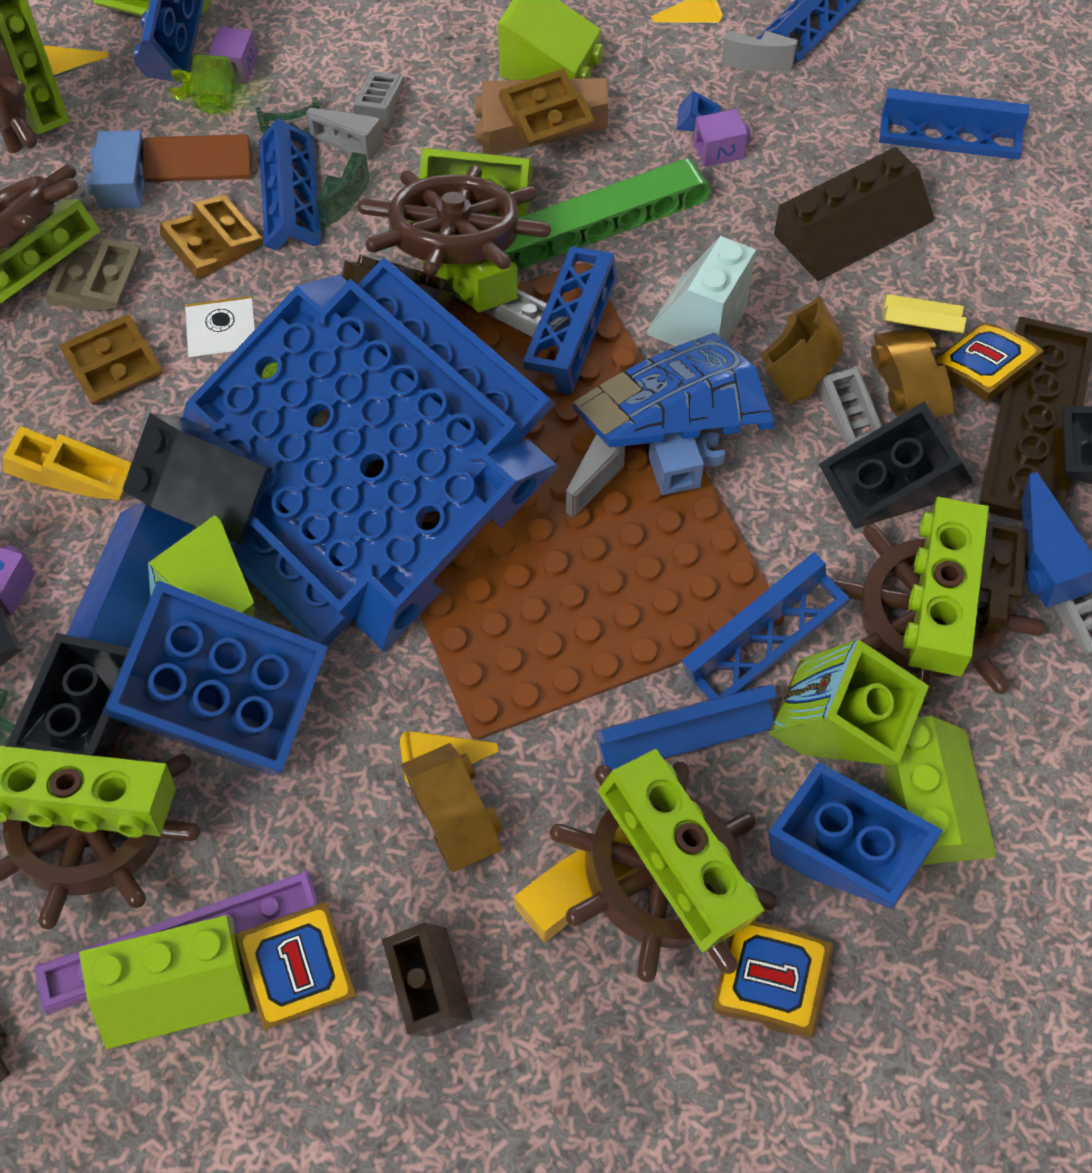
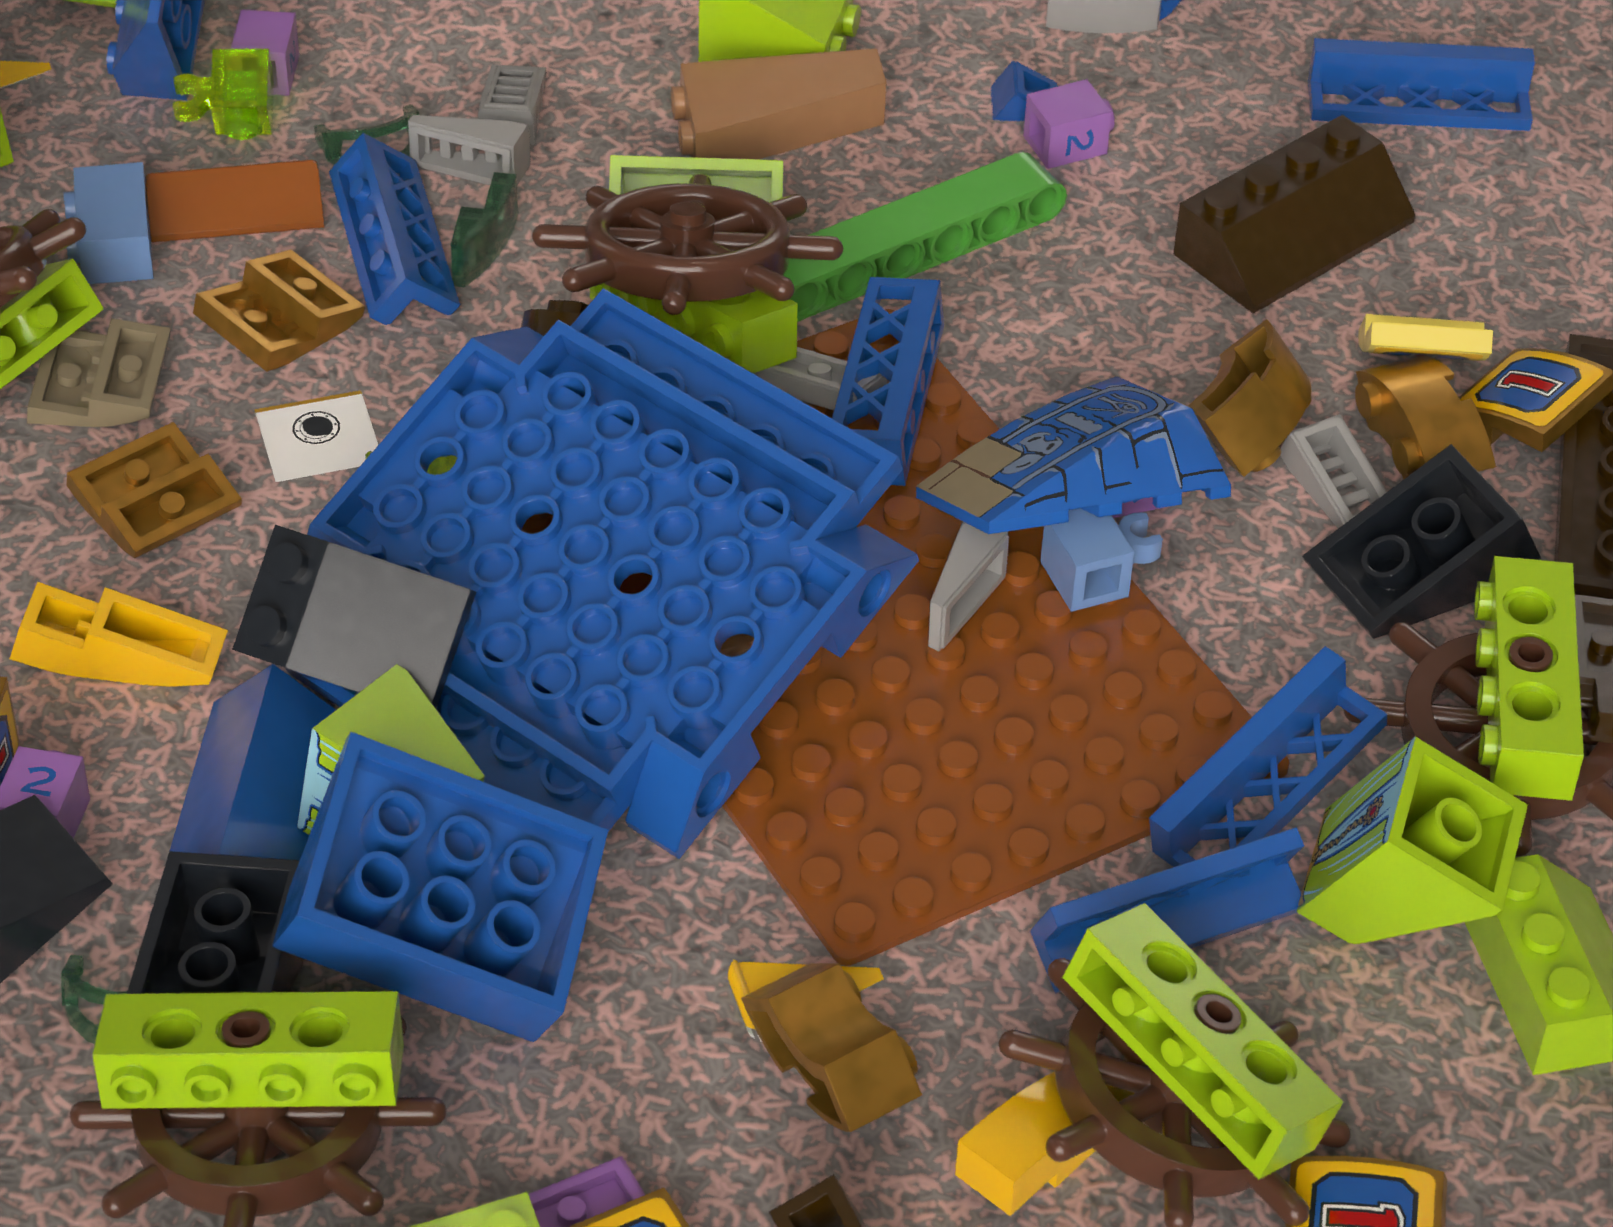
camera: 10 degrees left, 15 degrees down
(545, 107) = (791, 91): pearl gold slope -> none
(708, 295) = (1094, 327): light aqua slope -> none
(851, 838) = (1444, 1020): blue slope -> none

